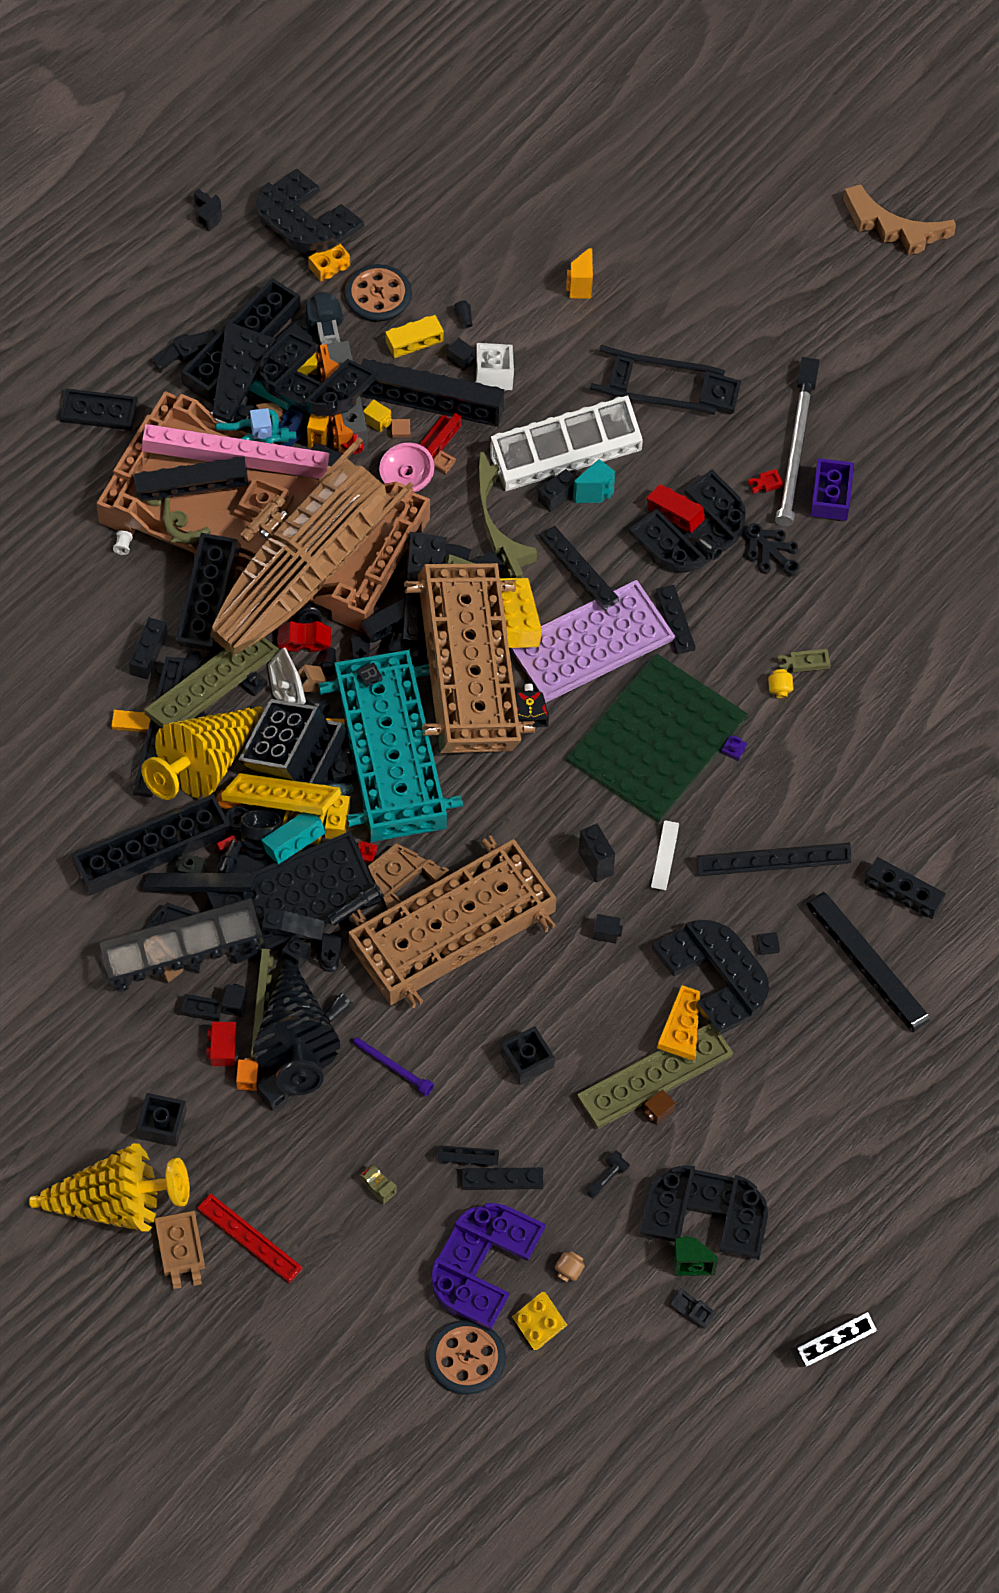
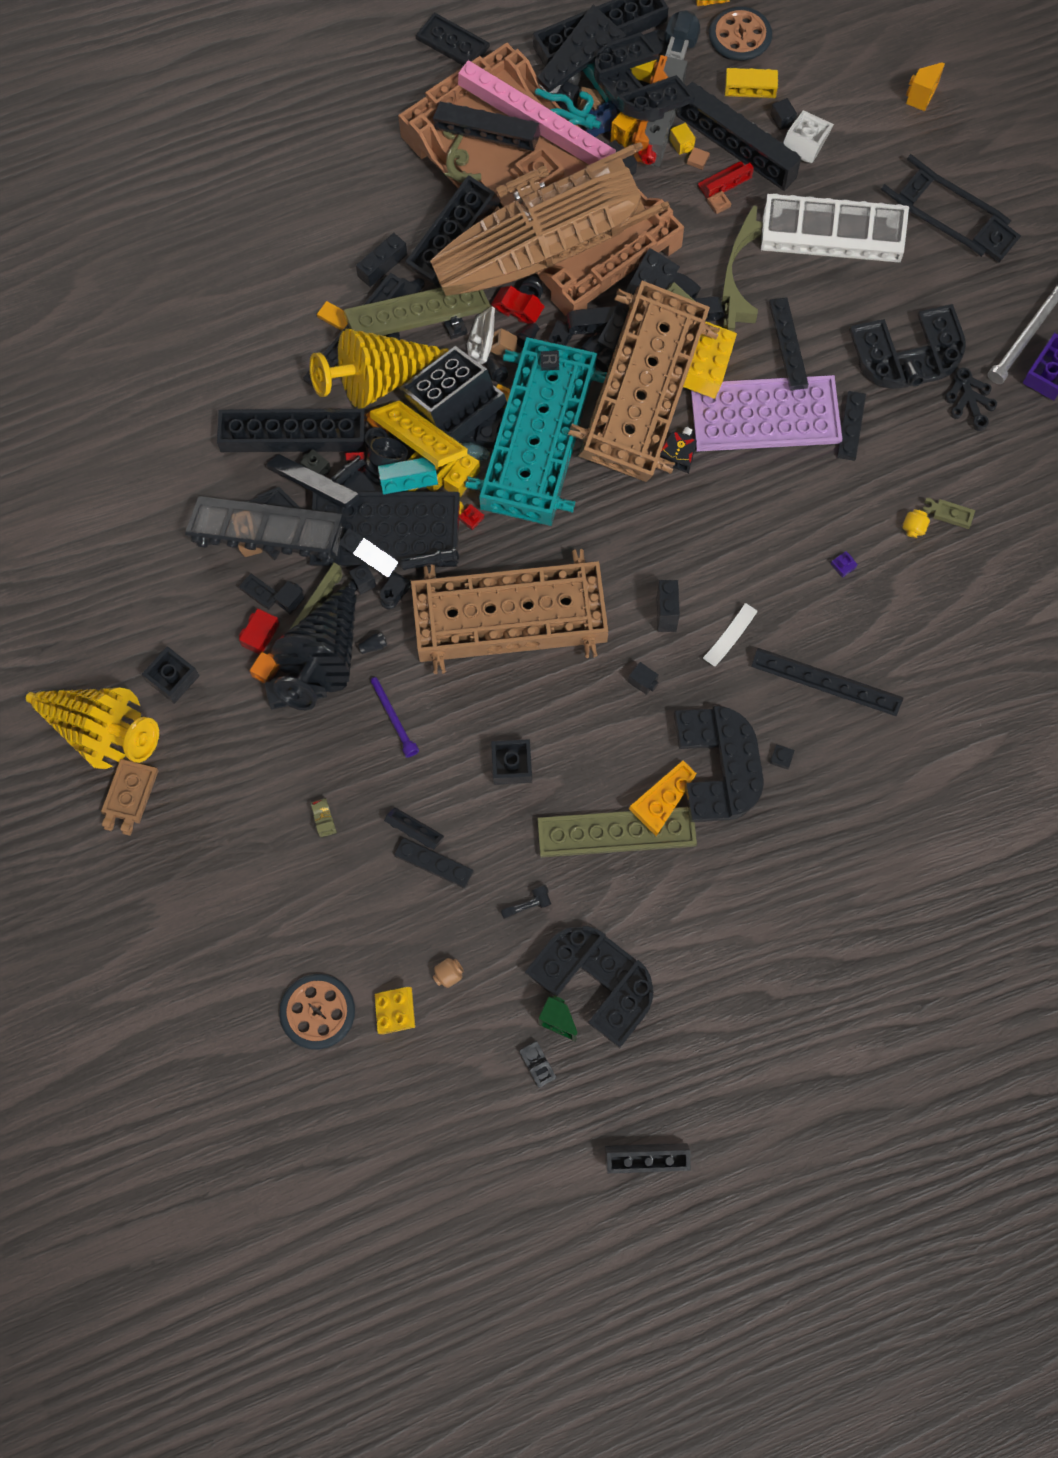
camera: 30 degrees right, 10 degrees up
(122, 544) = (410, 161): white bush -> none
(183, 346) = (549, 15): black plate -> none
(249, 1238) = (191, 814): red tile -> none
(260, 423) = (572, 102): light blue brick -> none
(398, 868) = (489, 543): medium nougat wing -> none
(405, 459) = (684, 185): bright pink dish -> none
(463, 313) = (805, 79): black cone -> none
(465, 1251) = (362, 917): dark purple plate -> none
(556, 490) = (805, 267): black brick -> none
(594, 484) = (839, 274): teal slope -> none
(657, 737) = (780, 525): clear green plate -> none
(659, 1107) = (604, 863): reddish brown brick -> none
(676, 508) = (902, 325): red brick -> none
(768, 481) = (999, 335): red plate -> none
(868, 962) = (864, 816): black beam -> none
(900, 879) = (934, 752): black brick -> none

